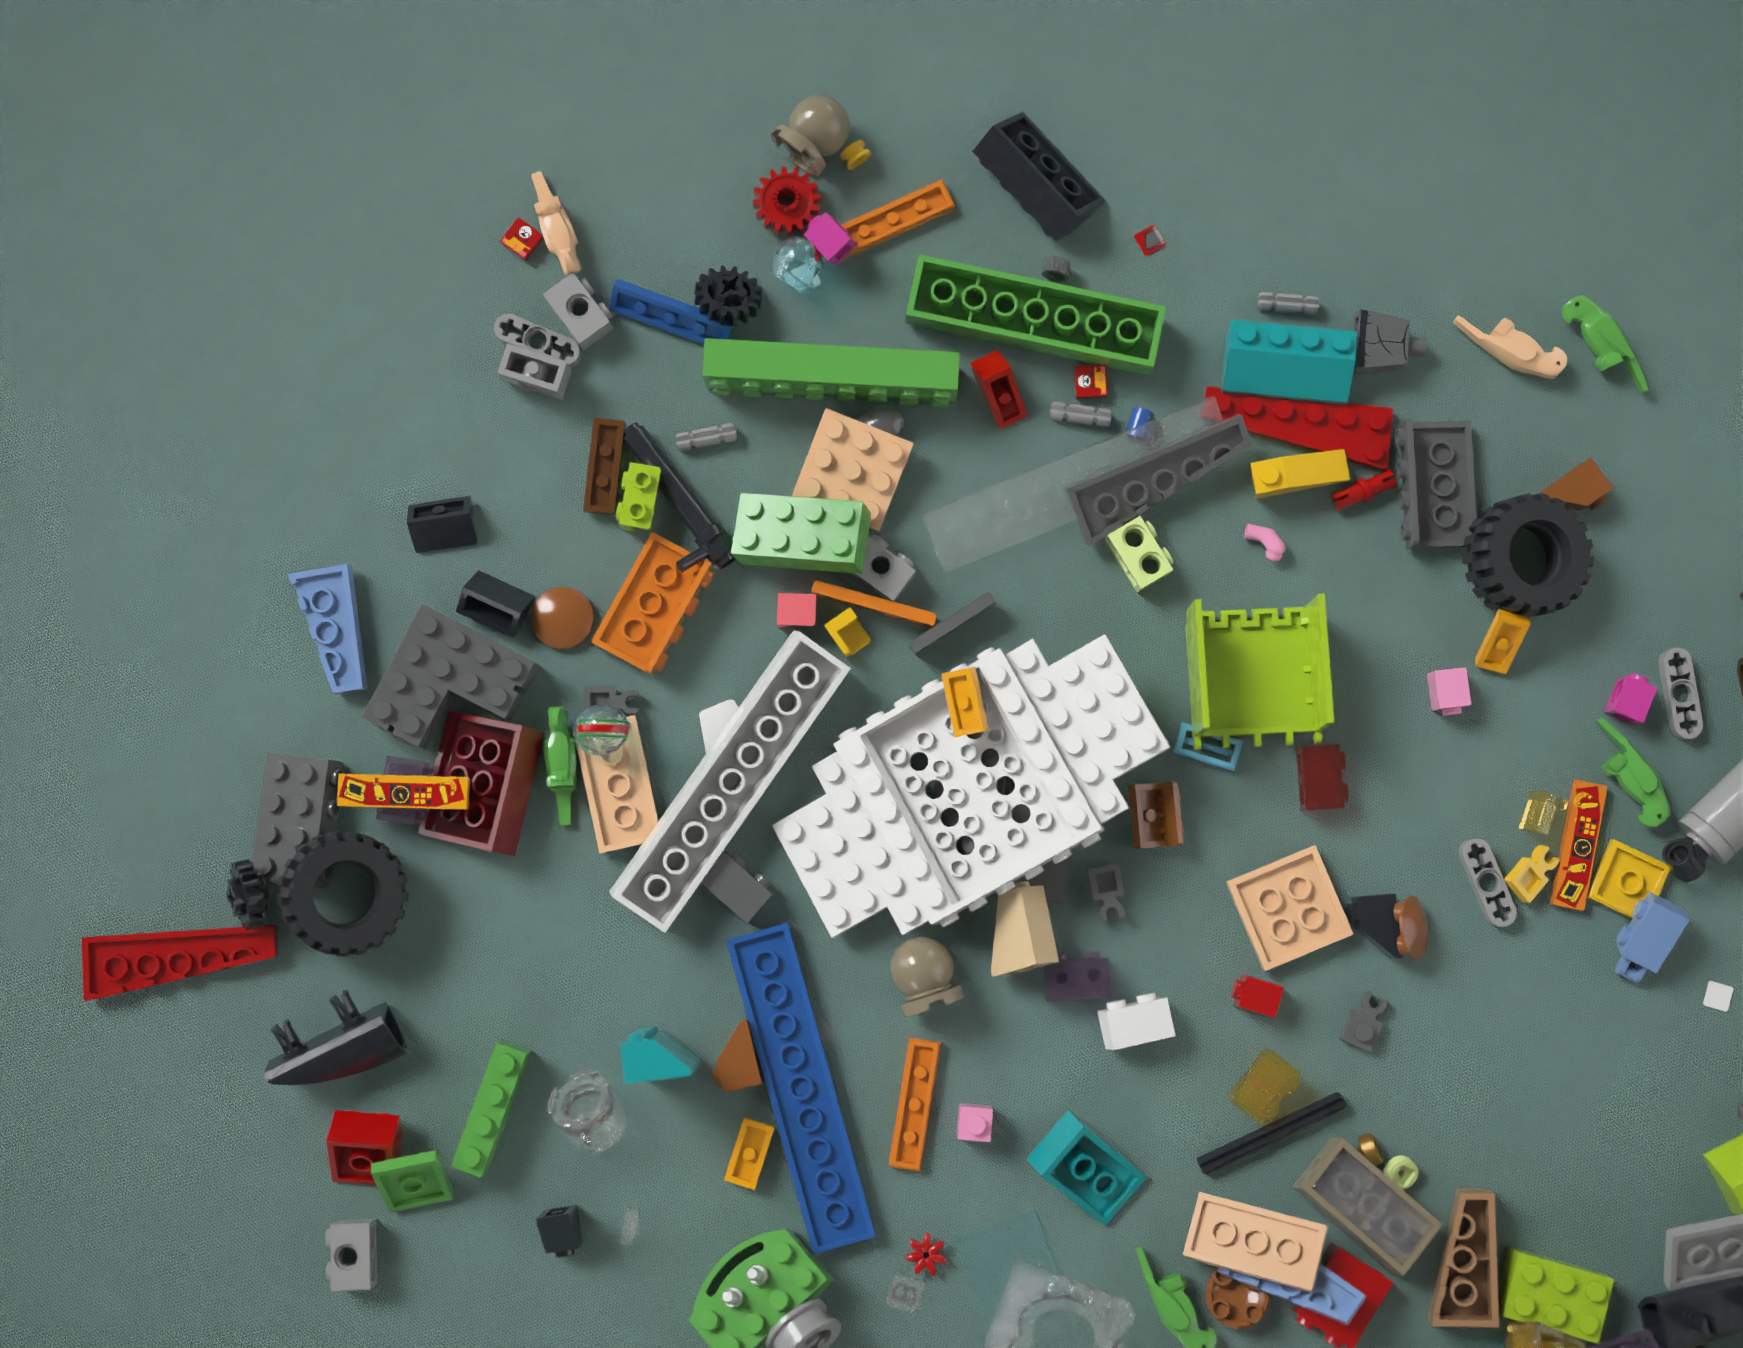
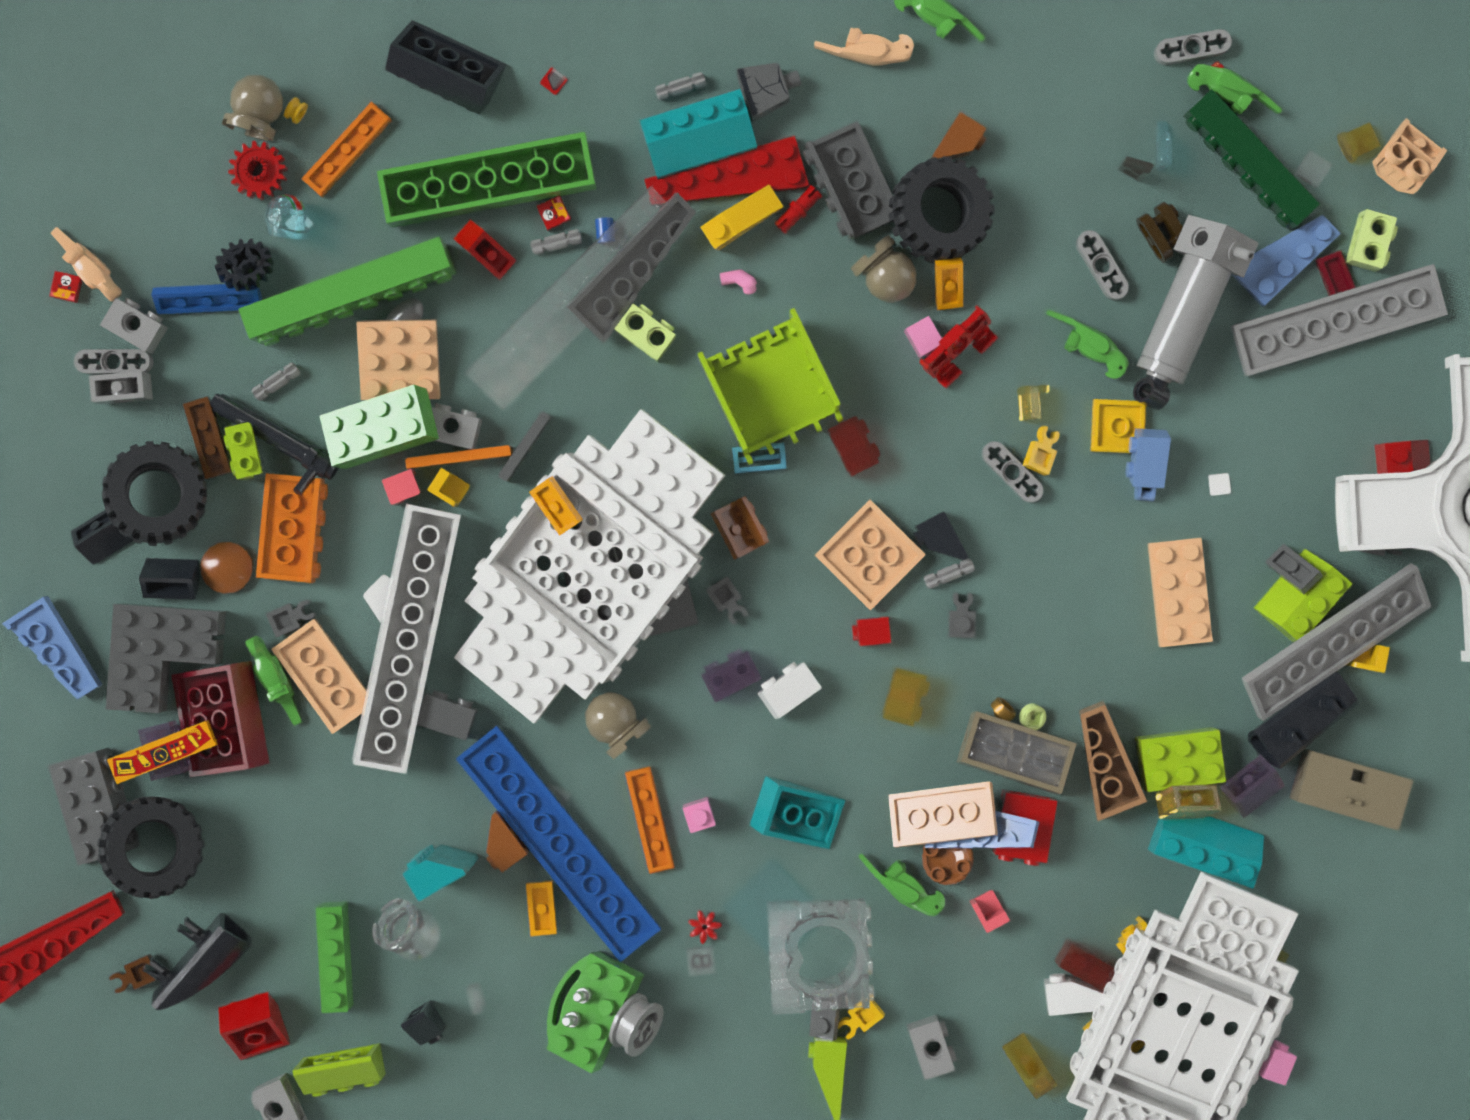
camera: 20 degrees left, 5 degrees up
(247, 894) = (80, 878): black gear -> none
(257, 1031) = (133, 974): none -> reddish brown plate
(412, 1181) = (298, 1035): bright green plate -> none
(441, 1242) = (340, 1070): none -> lime slope
(532, 462) = (146, 459): none -> black tyre
(601, 730) = (292, 641): clear light blue helmet -> none
(830, 238) = (303, 186): dark pink brick -> none
(1022, 932) = (674, 658): tan slope -> none
(1056, 268) = (489, 135): dark grey axle -> none
(1271, 1133) = (925, 728): black axle -> none
(1370, 967) = (949, 573): none -> light grey axle
(1412, 927) = (967, 531): dark orange dish -> none
(1438, 601) = (887, 272): none -> dark tan tile
(1506, 704) = (973, 329): none -> red piece
(1578, 845) = (1069, 414): tile -> none
(1625, 1100) = (1180, 592): none -> light nougat plate
(1631, 699) = (1065, 286): dark pink brick -> none

